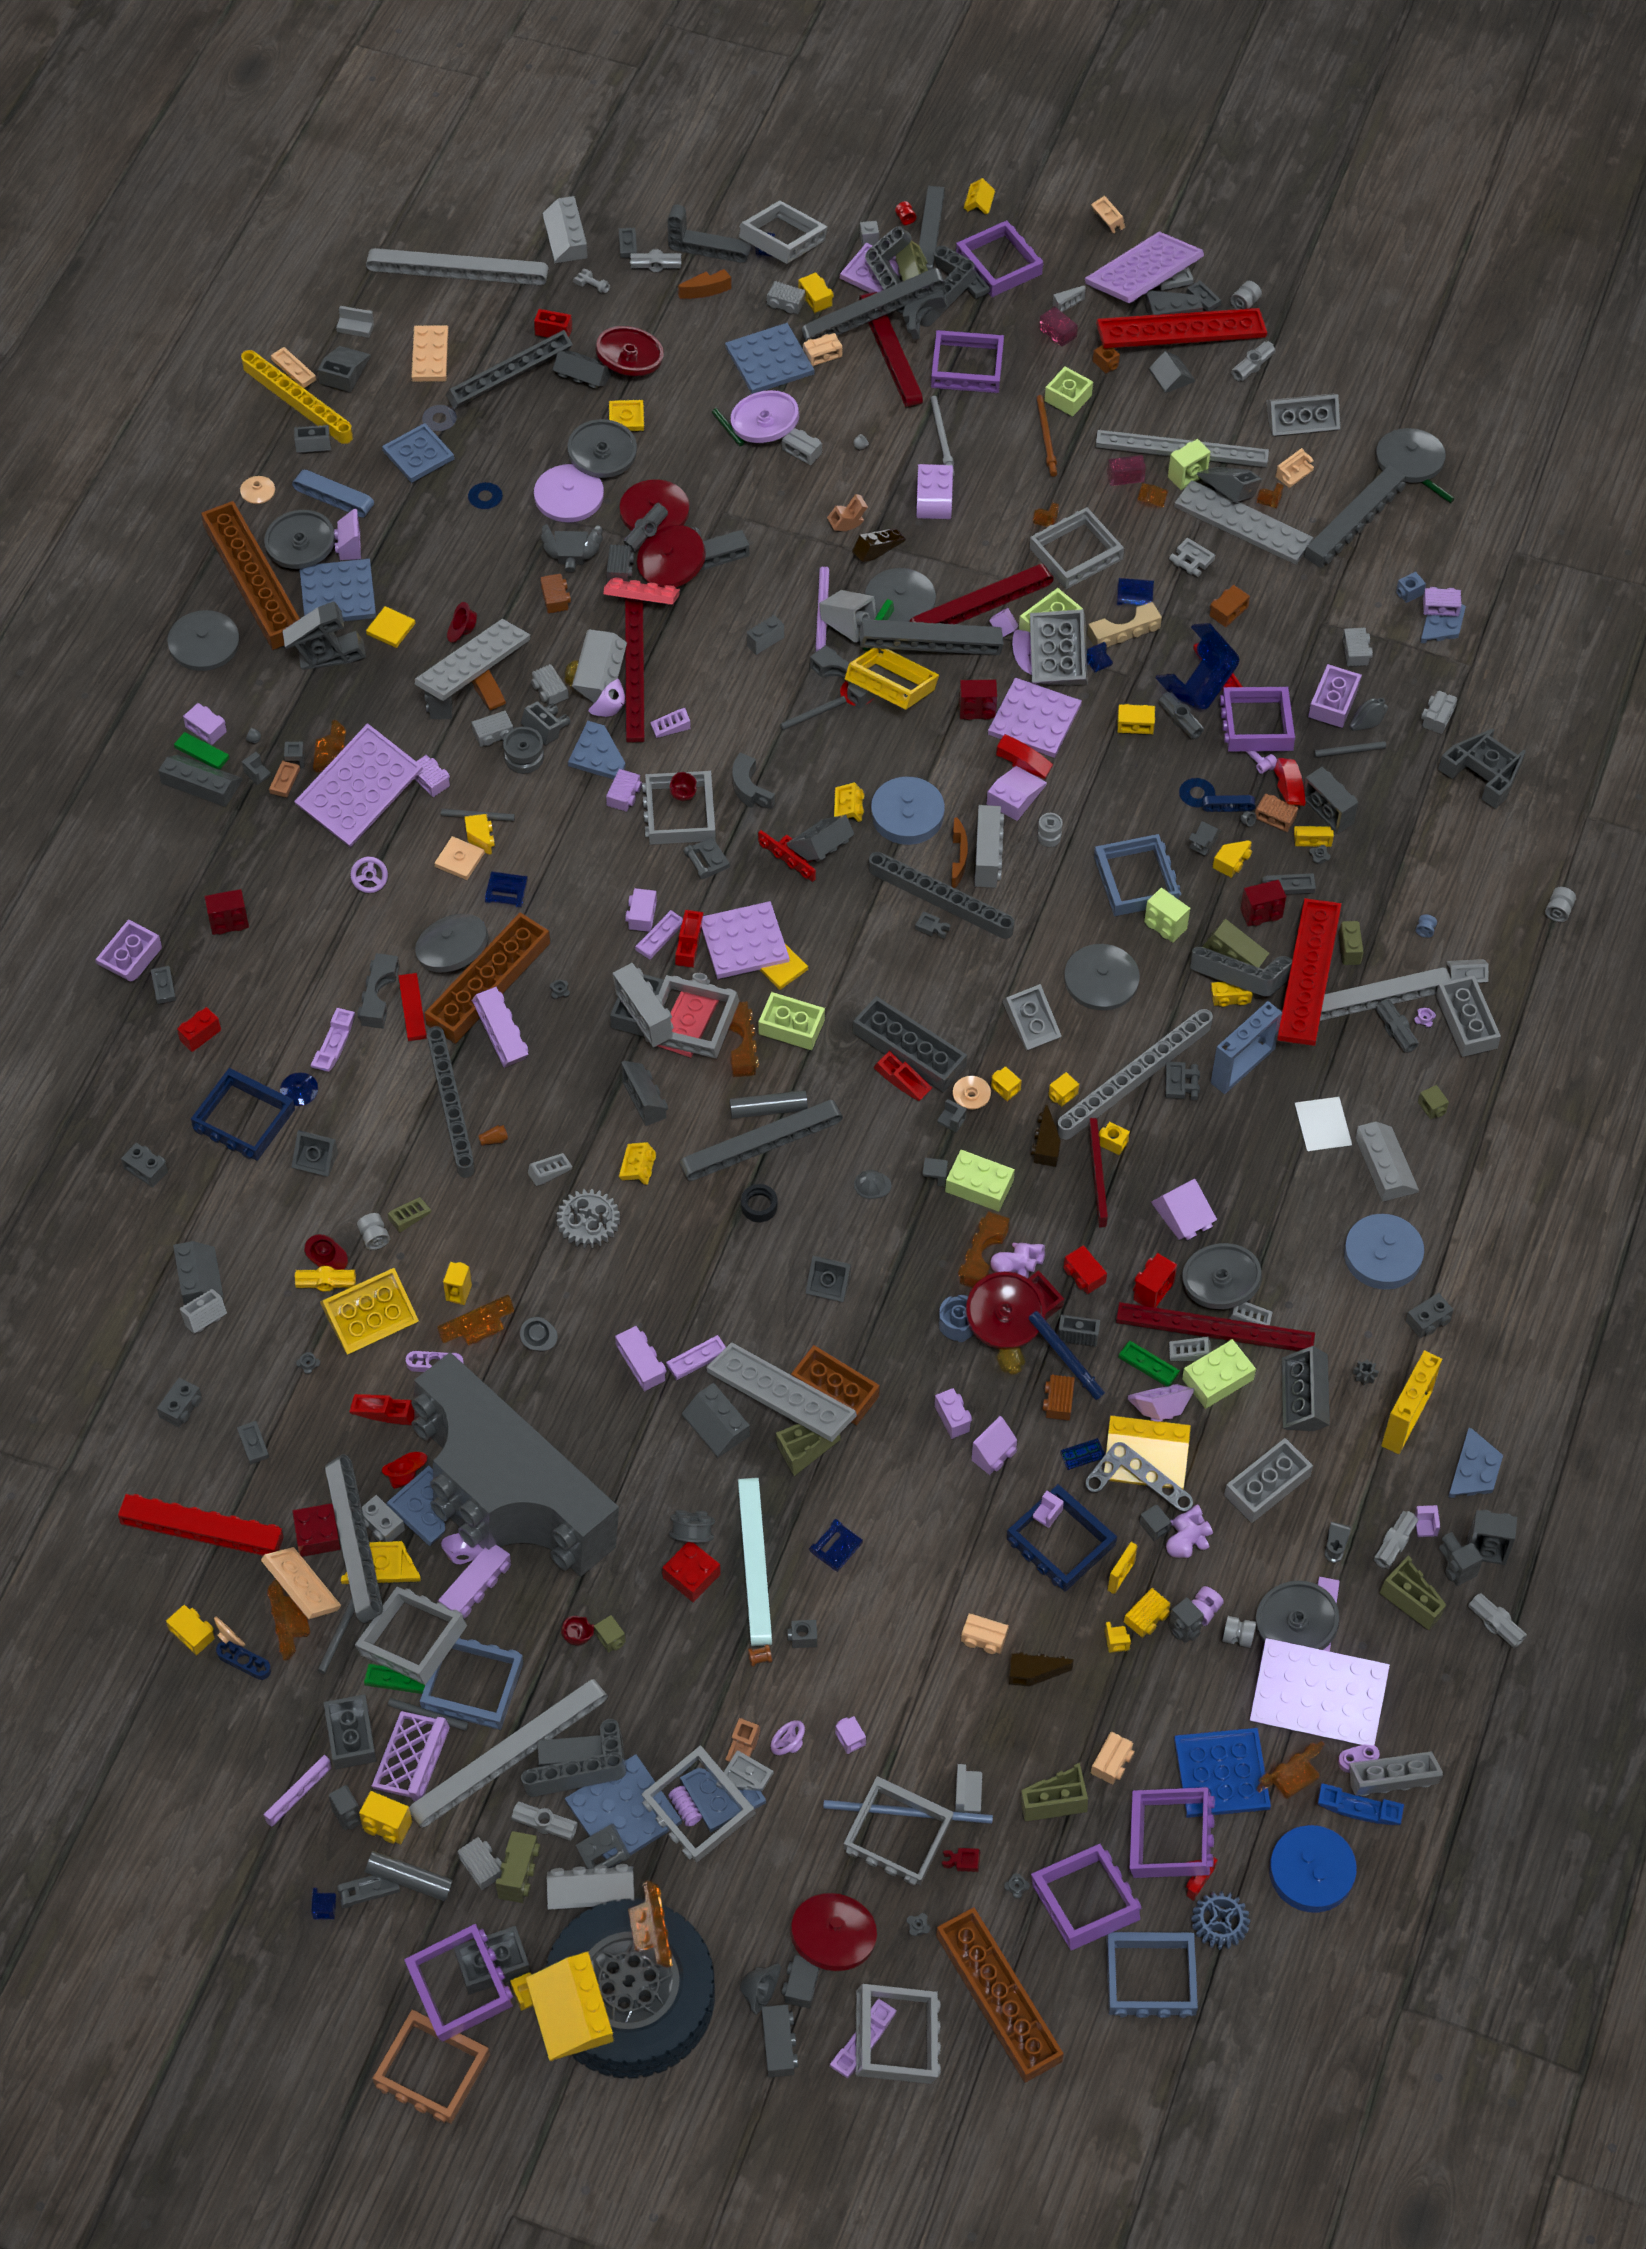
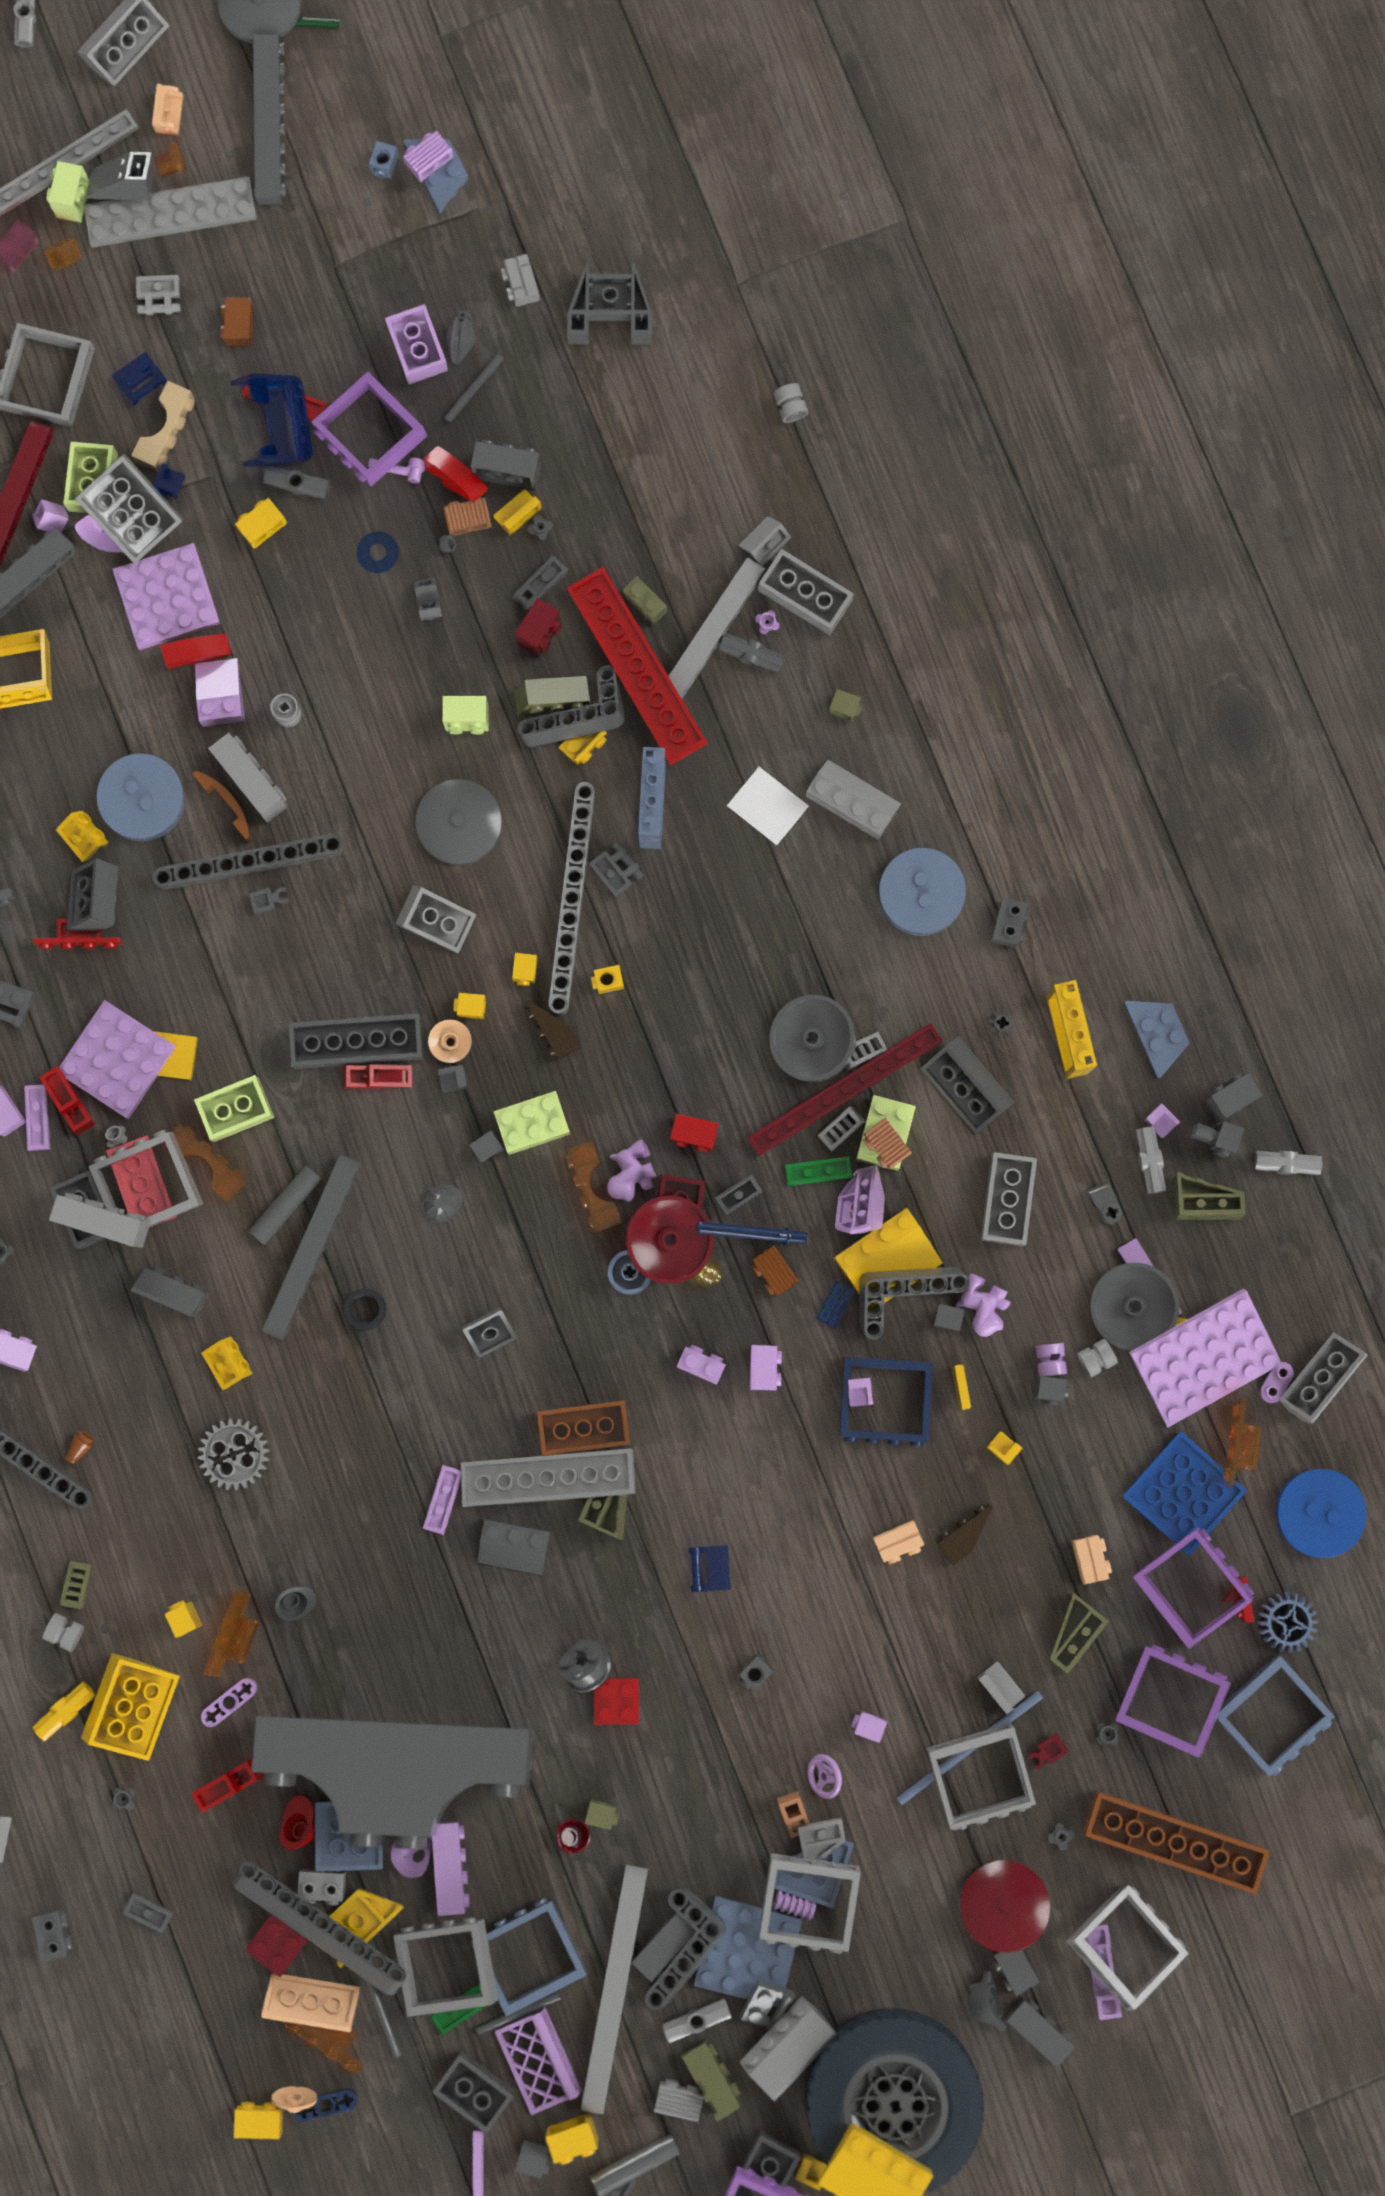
camera: 40 degrees left, 25 degrees up
(200, 1525) = (177, 2026): red brick -> none
(325, 1252) = (41, 1689): dark red piece -> none
(538, 1174) = (156, 1454): light grey slope -> none
(640, 1358) = (399, 1545): lavender brick -> none
(649, 1925) = (876, 2054): clear orange bracket -> none
(754, 1562) = (658, 1644): light aqua beam -> none
(759, 1655) = (737, 1722): dark orange bush -> none
(978, 699) = (103, 626): dark red brick -> none
(1098, 1172) = (623, 1025): dark red tile -> none
(1130, 847) = (414, 656): sand blue window -> none
(1147, 1613) = (1010, 1405): yellow brick -> none
(1154, 1281) = (763, 1095): red brick -> none
(1185, 1210) = (726, 999): lavender slope -> none
(1213, 1369) = (886, 1144): none -> nougat brick
(1229, 803) = (417, 542): dark blue beam -> none
(1231, 857) = (467, 599): yellow slope -> none
(1356, 646) = (389, 269): light grey brick -> none
(1360, 1808) = (1302, 1432): blue slope -> none
(1426, 926) = (693, 525): sand blue wheel -> none

